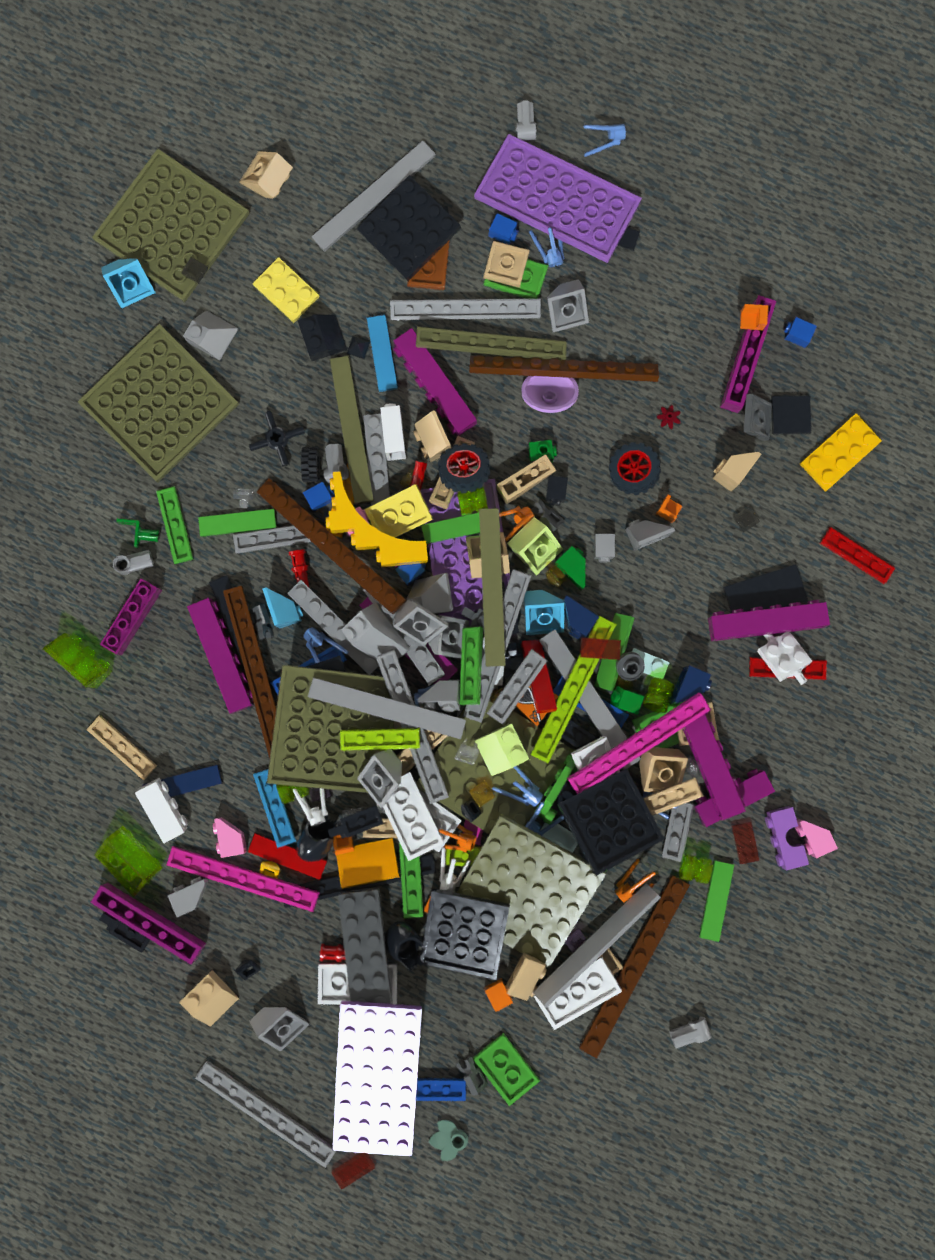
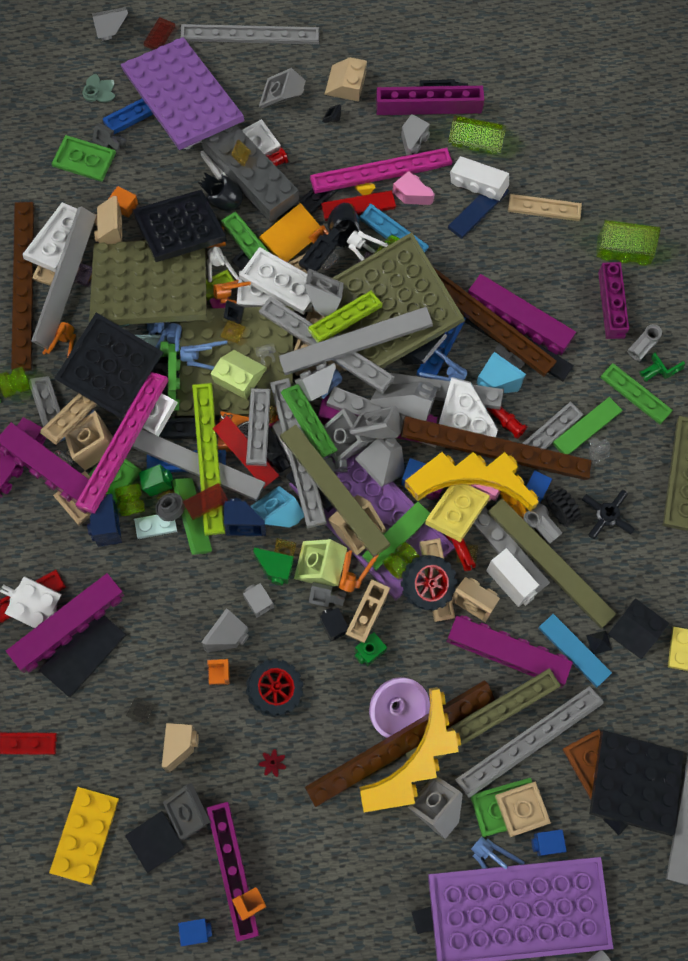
camera: 145 degrees right, 15 degrees down
(334, 592) = (466, 410): none -> white plate
(368, 964) = (240, 152): none -> clear yellow slope
(393, 1215) = (109, 22): none -> light grey slope
(587, 336) = (398, 787): none -> yellow arch

